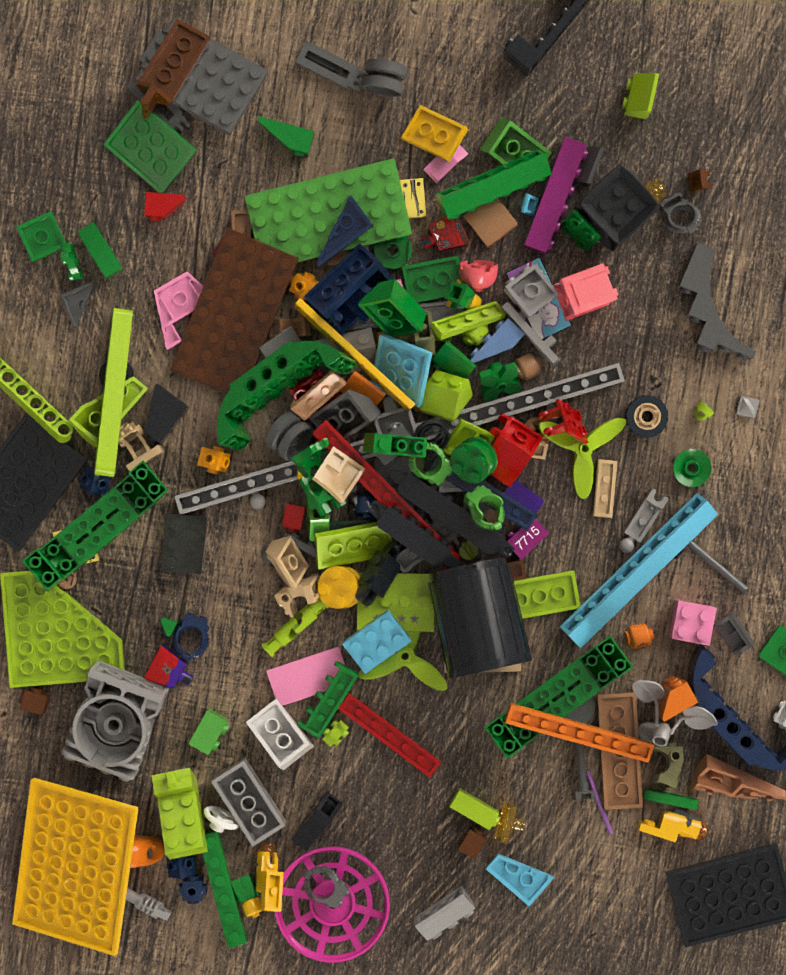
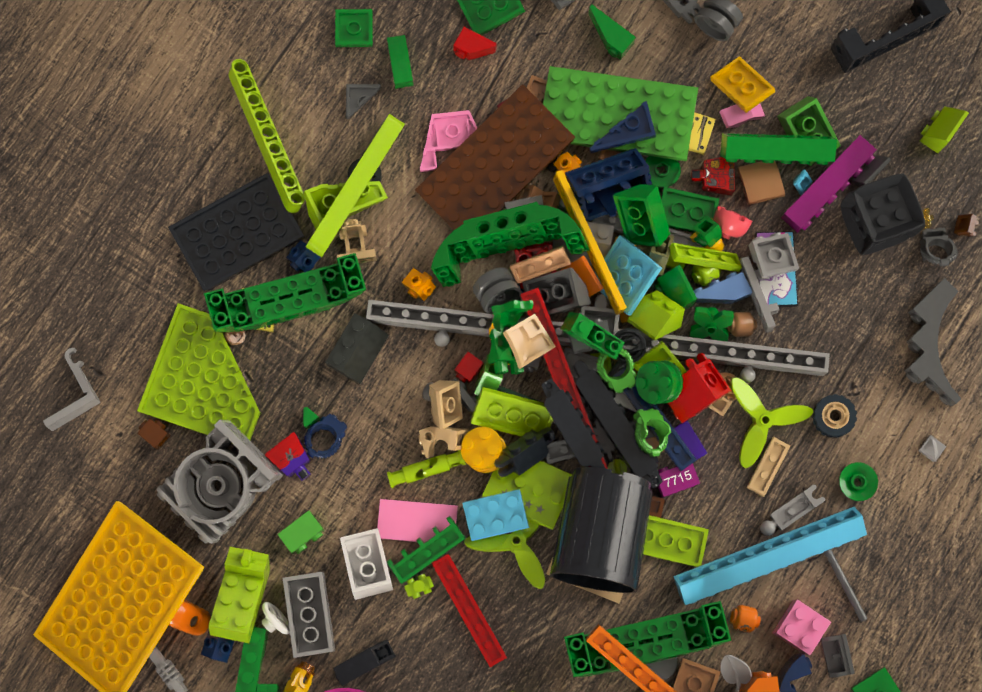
camera: 20 degrees right, 10 degrees down
(70, 258) = (371, 52): green plate -> none
(163, 414) = (391, 226): black slope -> none
(197, 884) = (225, 676): dark blue brick -> none
(361, 503) = (534, 383): dark blue head -> none
(572, 421) = (762, 388): red plate -> none
(580, 230) = (840, 222): green hinge -> none
(585, 292) = (823, 277): coral container -> none
(701, 406) = (892, 433): lime tile -> none

